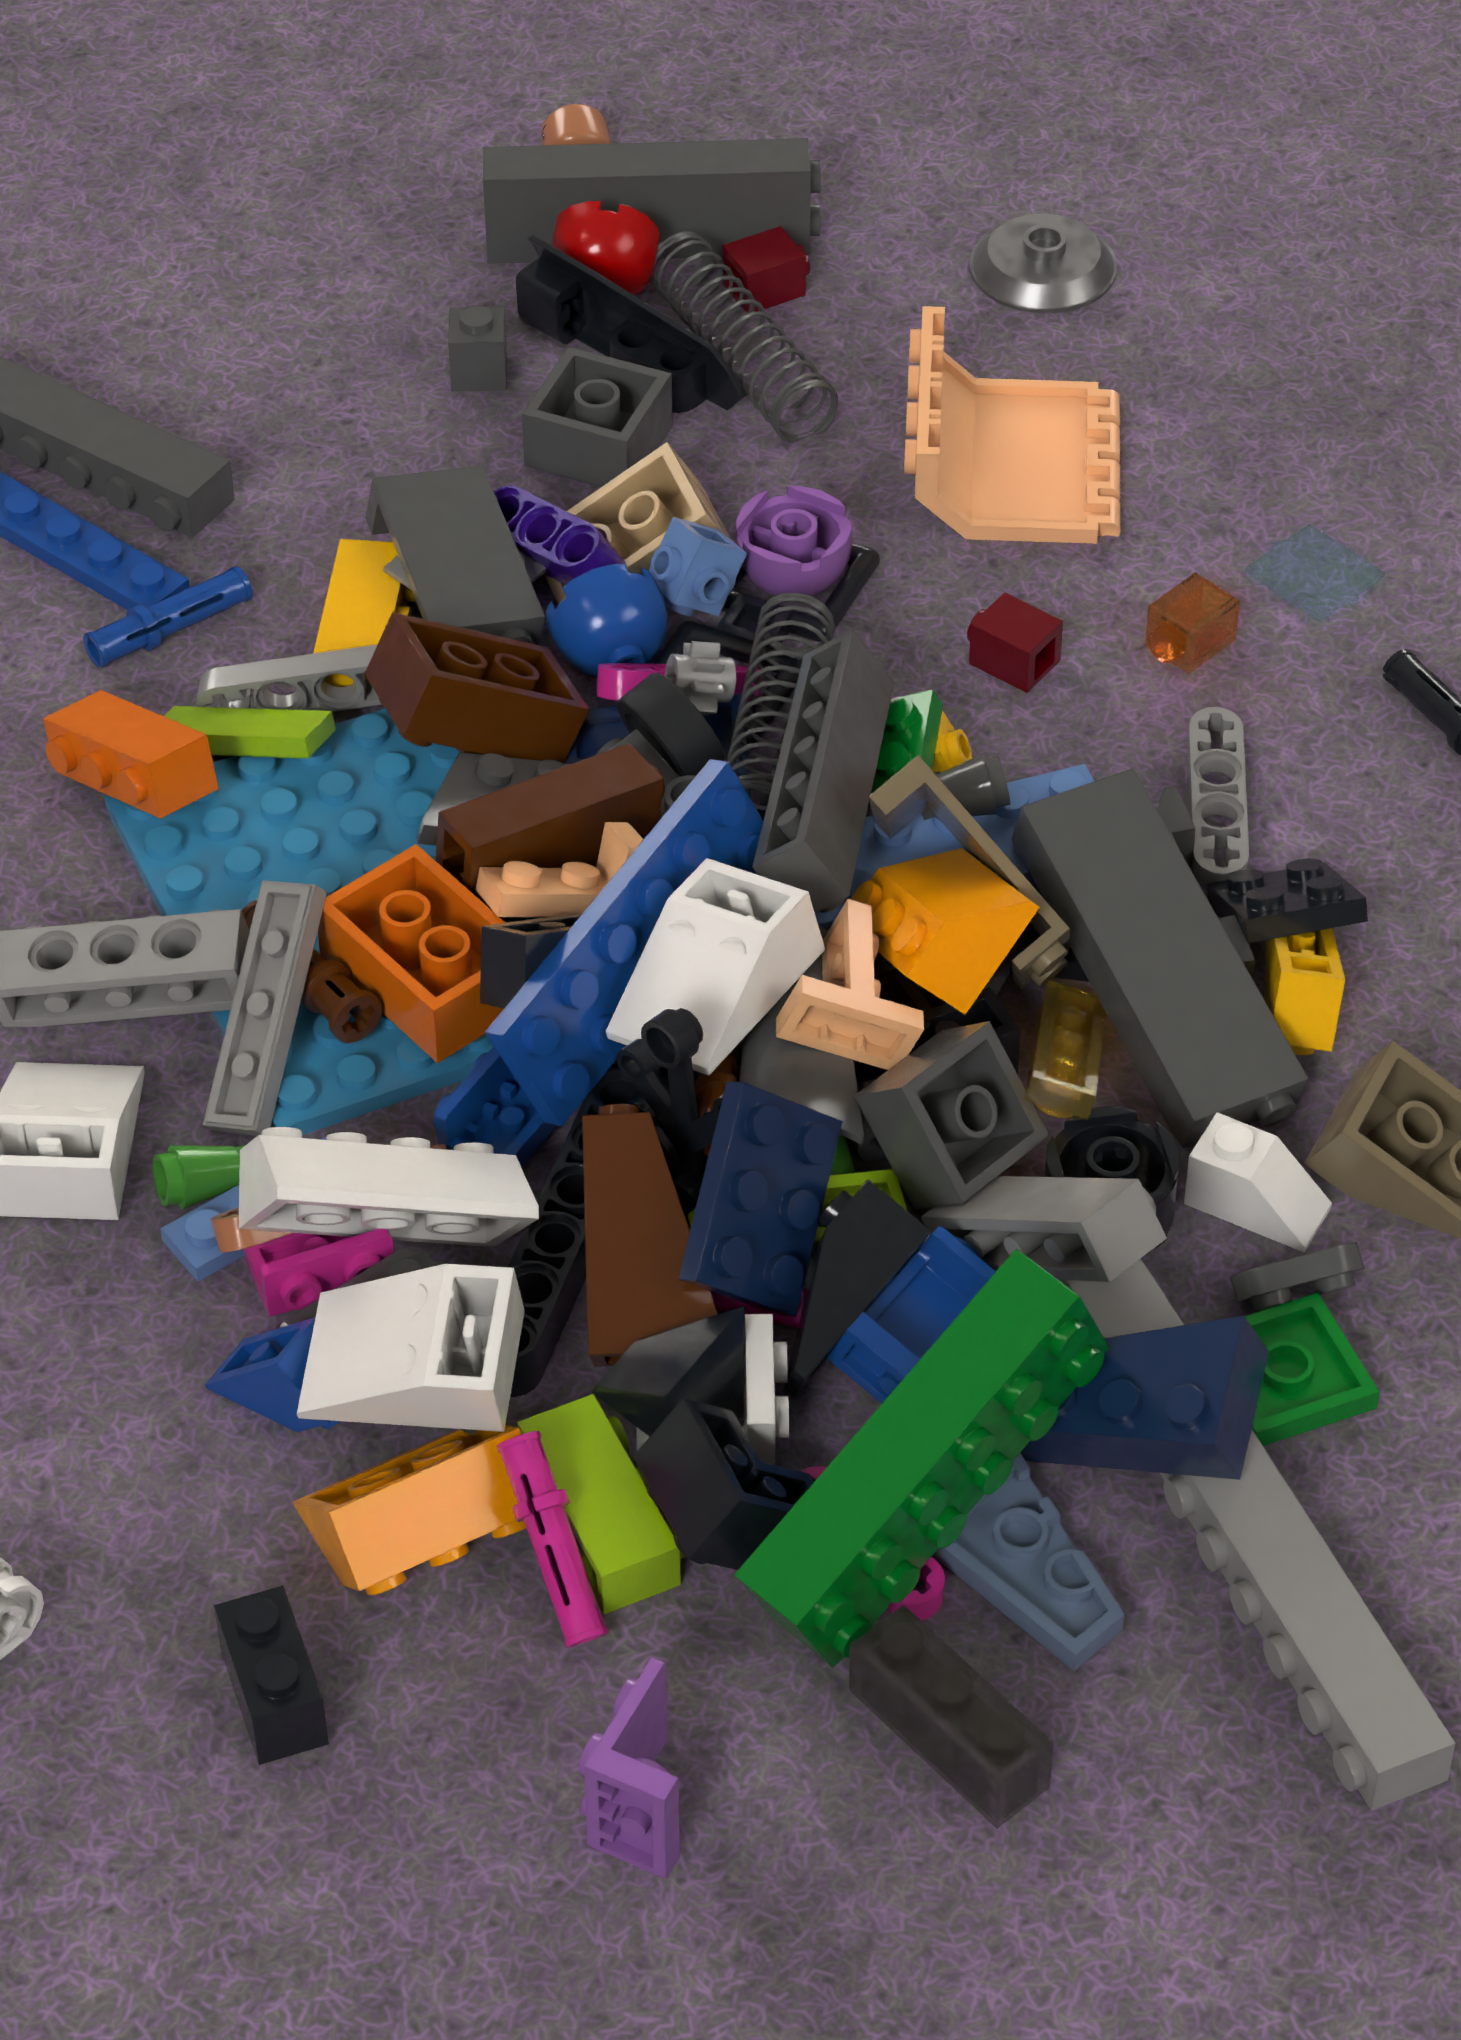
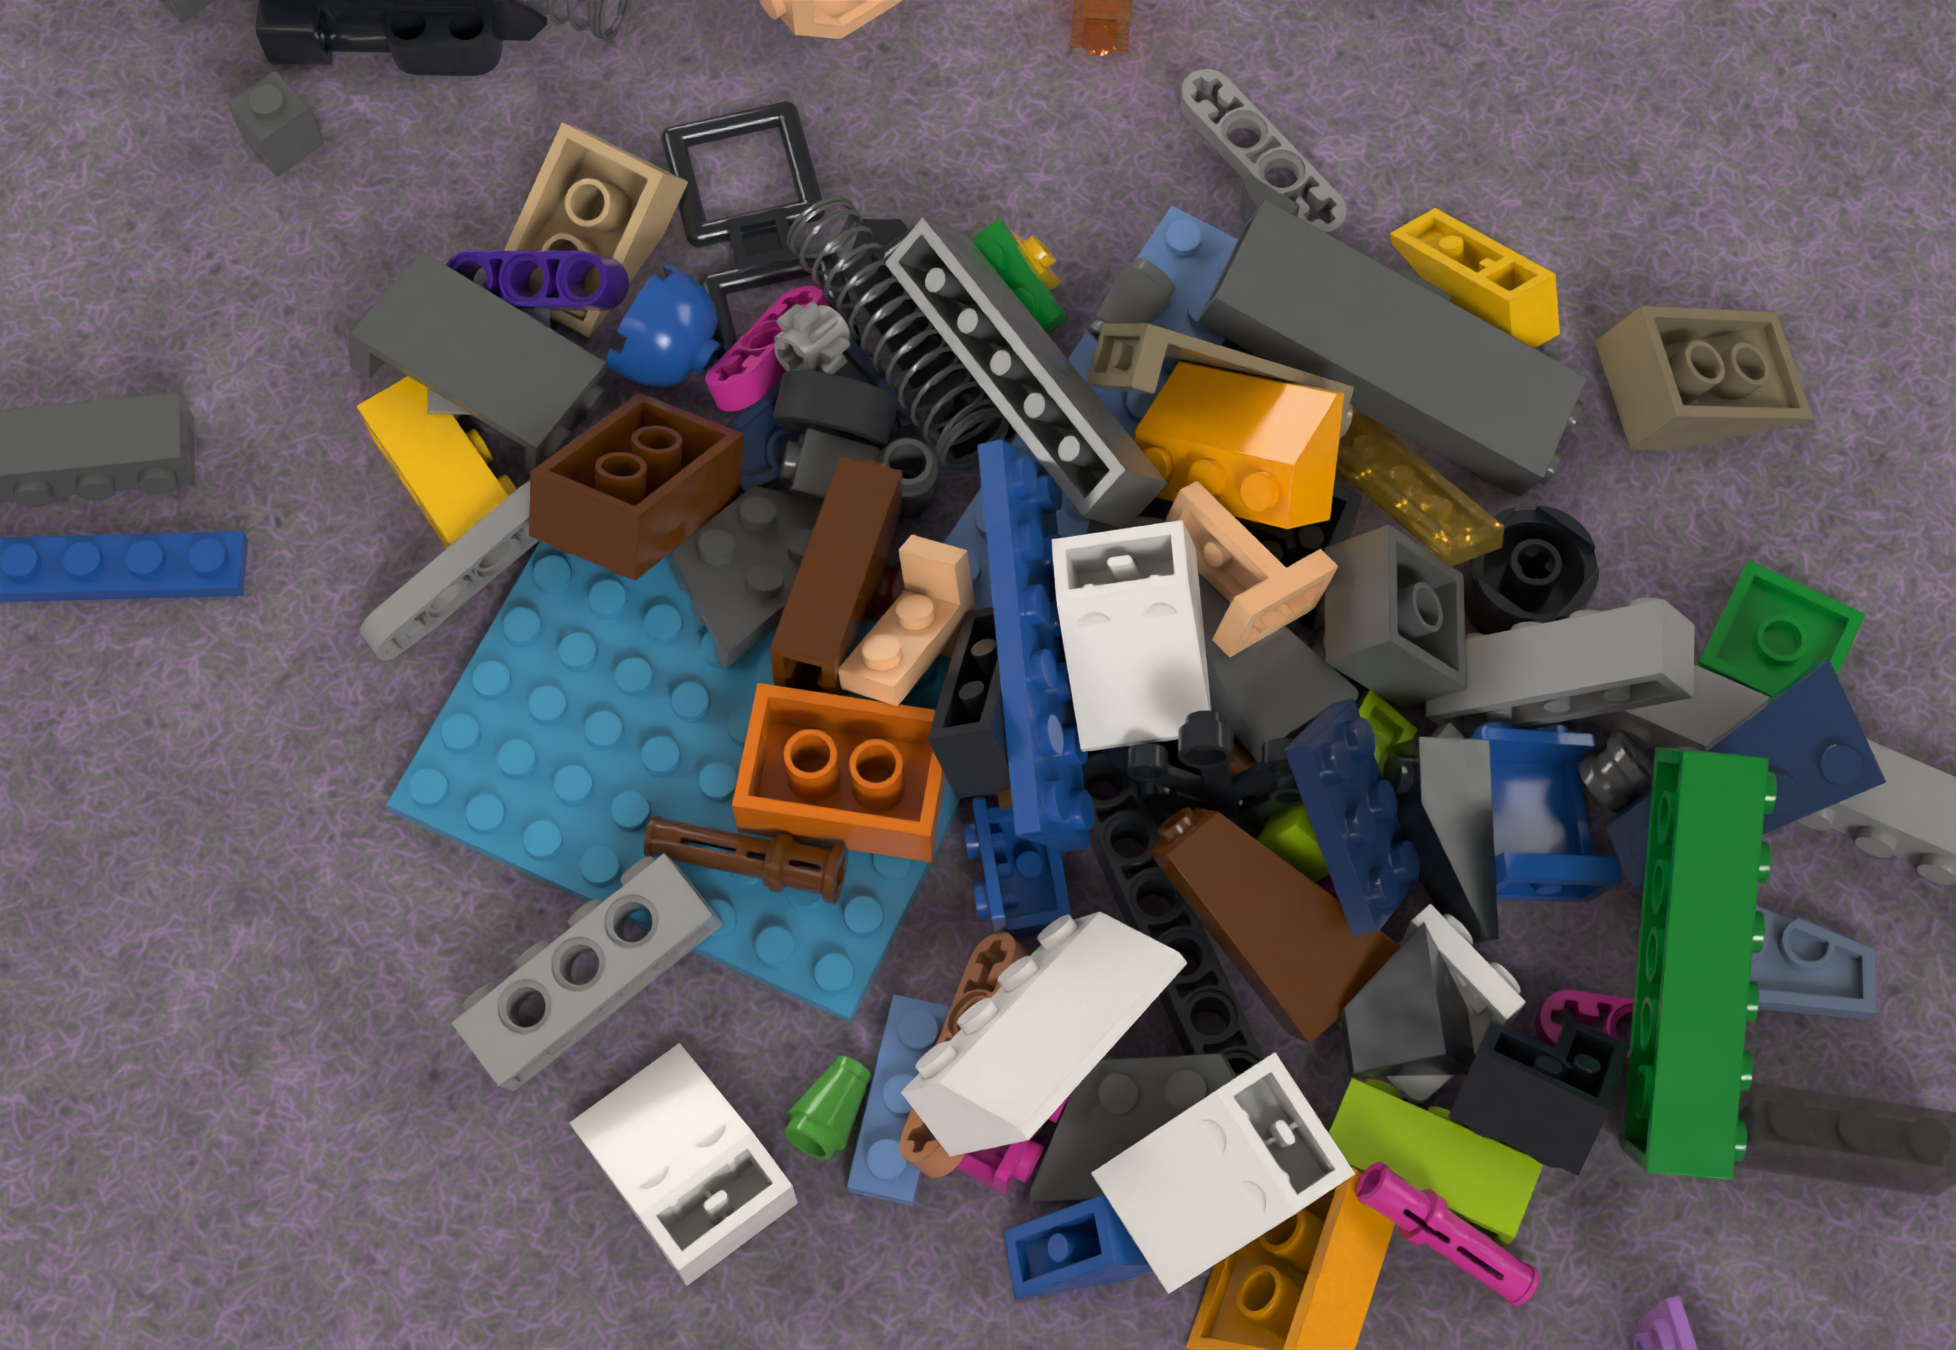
camera: 40 degrees left, 20 degrees up
(130, 753) = (387, 755): orange brick -> none
(150, 624) = (254, 603): blue pin -> none
(258, 731) = (450, 657): lime tile -> none
(264, 1008) = (758, 924): light grey tile -> none
(596, 417) = (453, 129): dark grey brick -> none
(695, 567) = (689, 227): medium blue brick -> none
(794, 541) = (739, 143): medium lavender cylinder -> none
(1015, 642) = (985, 118): dark red brick -> none
(1254, 1183) = (1617, 494): white slope -> none
(1288, 901) = (1417, 219): black plate -> none
(1325, 1269) = (1715, 553): dark grey plate -> none

